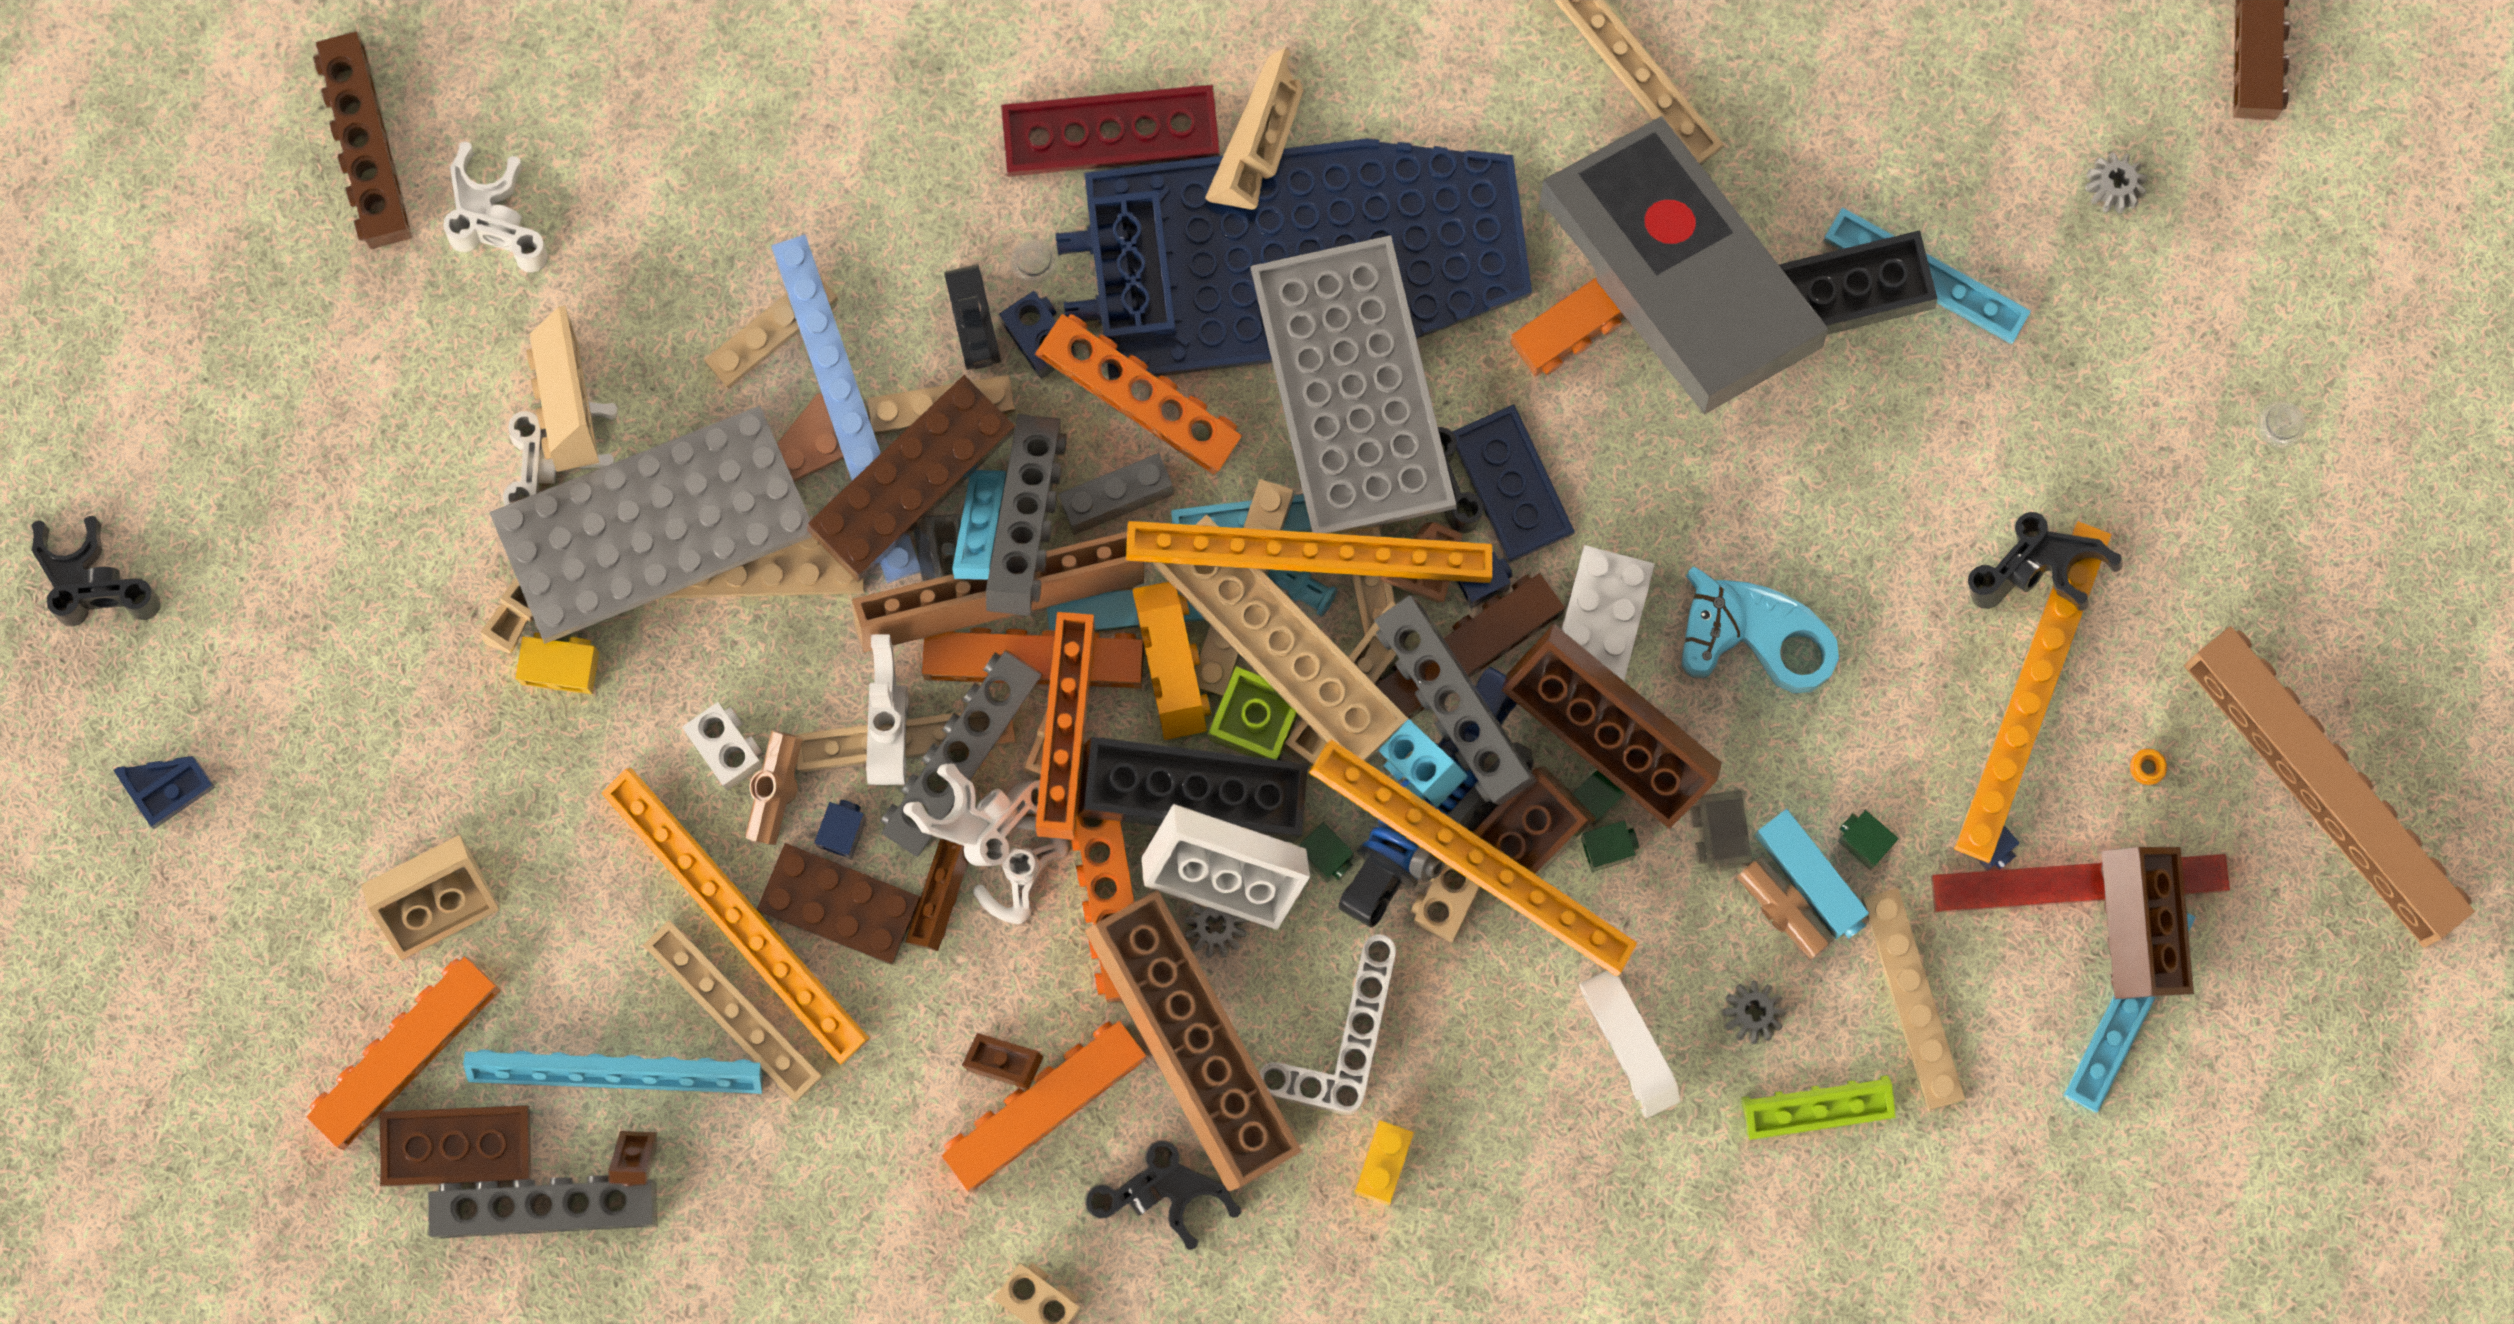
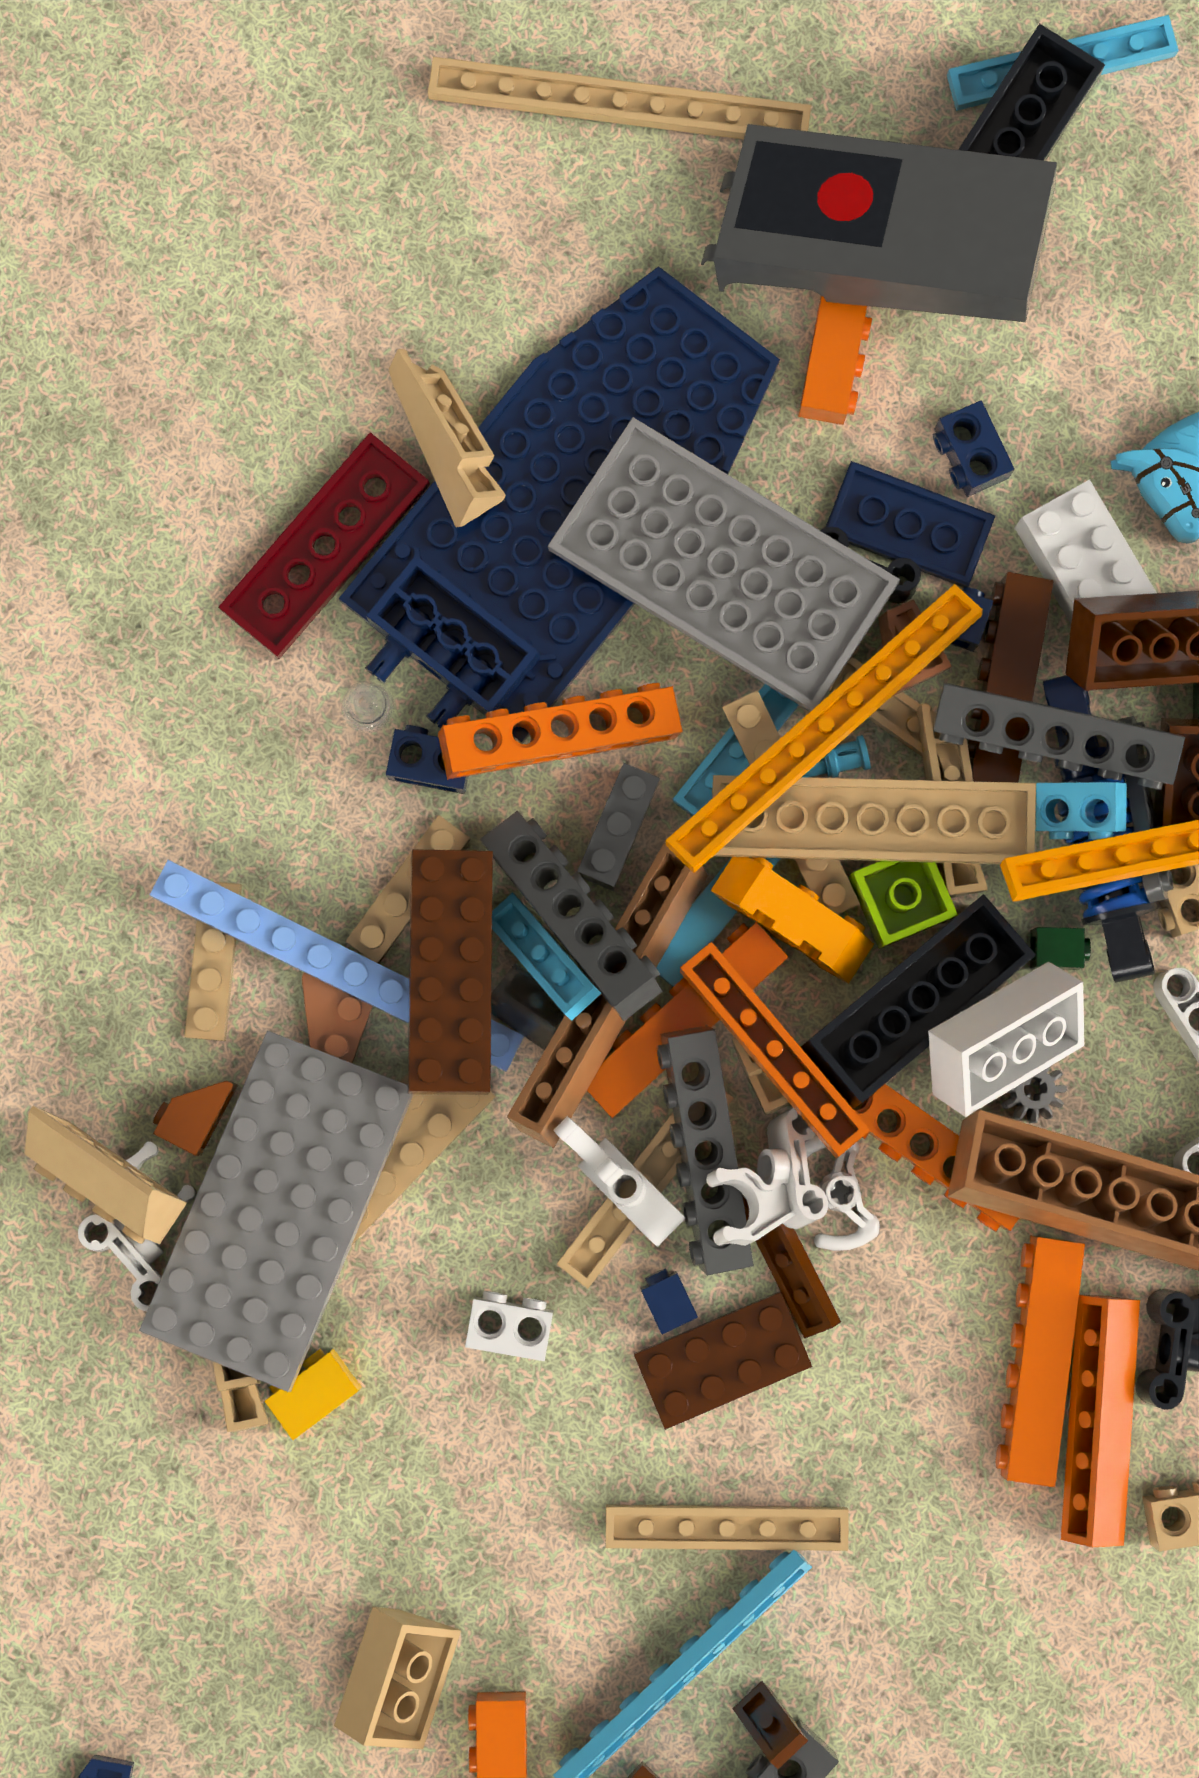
camera: 50 degrees left, 5 degrees up
(660, 416) = (193, 1117): none -> dark orange slope
(735, 916) = (653, 1451): light orange plate -> none
(773, 787) = (575, 1303): medium nougat piece -> none
(973, 327) = (381, 805): black piece -> none
(1002, 1061) = (977, 1357): reddish brown plate -> none
(1042, 1180) = (1100, 1421): none -> orange brick
(1608, 475) = (983, 447): none -> dark blue brick

